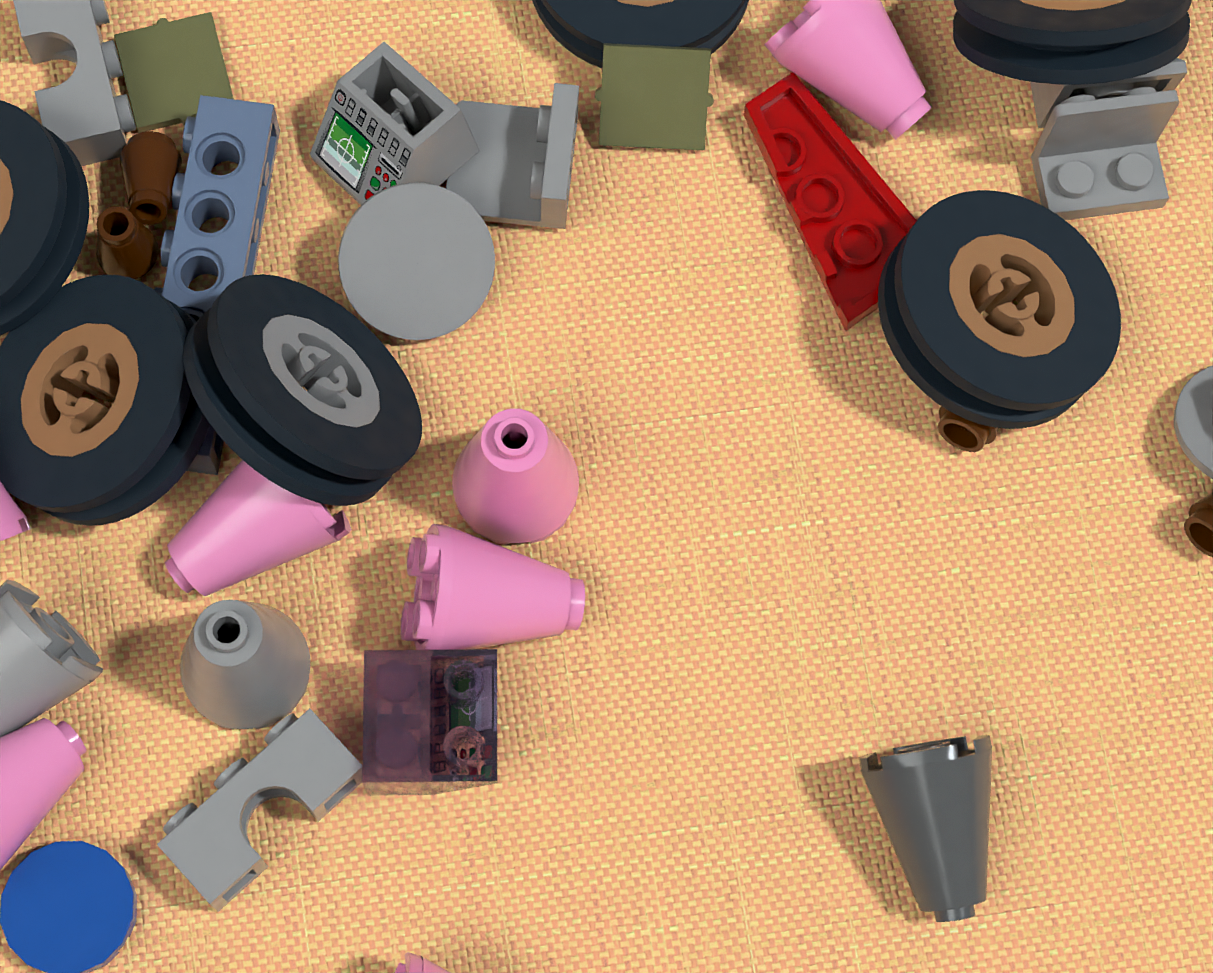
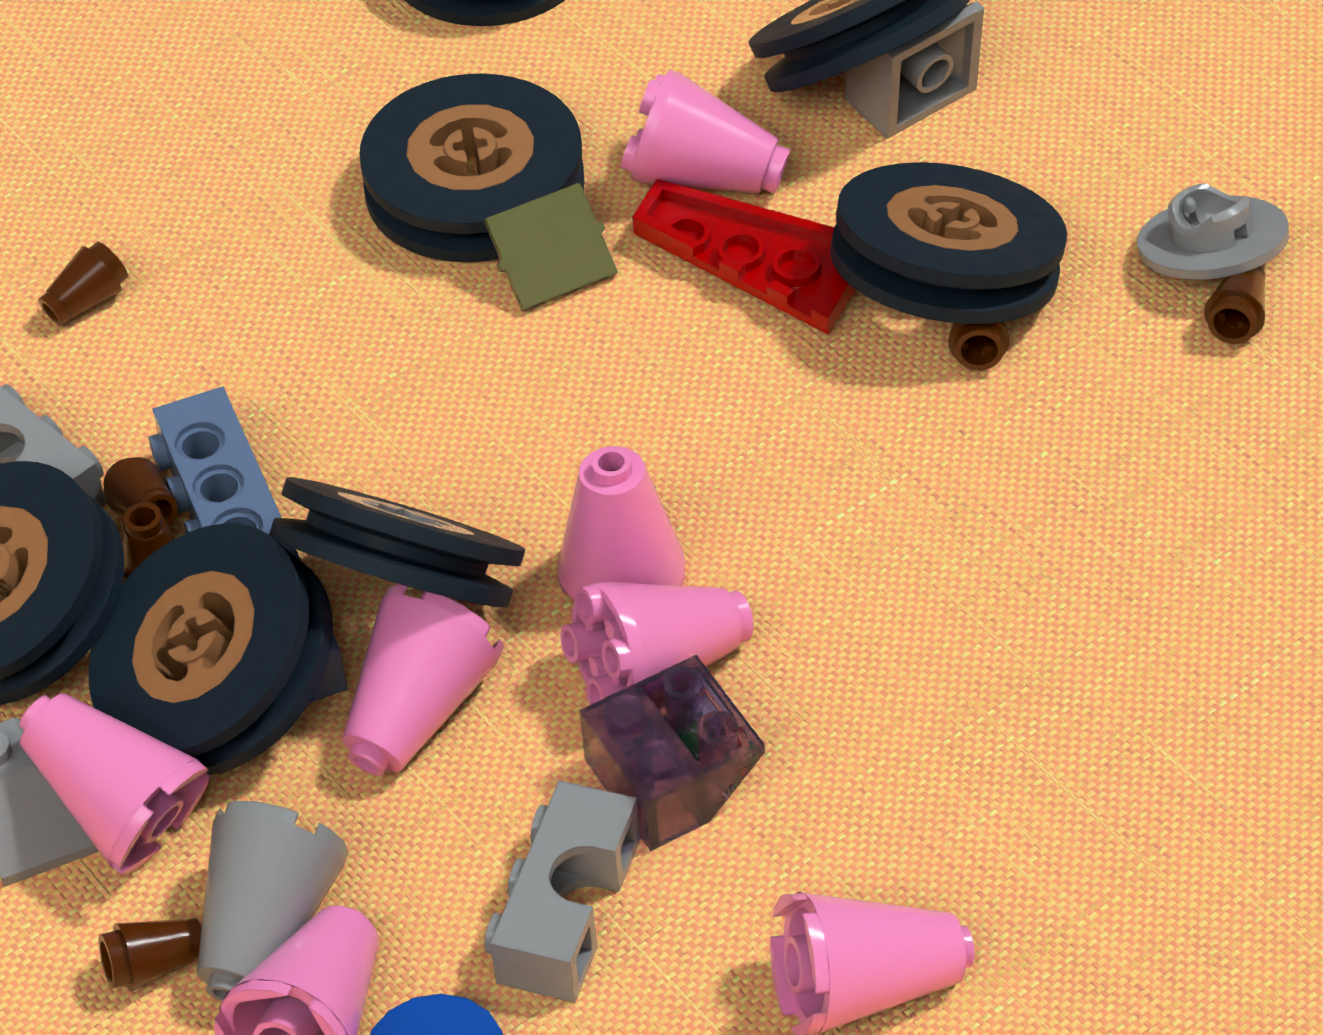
camera: 20 degrees left, 25 degrees down
(171, 68) = (108, 420): olive piece -> none
(244, 665) = (468, 783): light grey cone -> none
(390, 128) = (342, 363): light grey slope -> none
(416, 261) = (426, 438): light grey piece -> none
(521, 161) = (464, 344): light grey bracket -> none
(937, 819) = (1156, 599): dark grey cone -> none
(1104, 154) = (948, 107): light grey bracket -> none

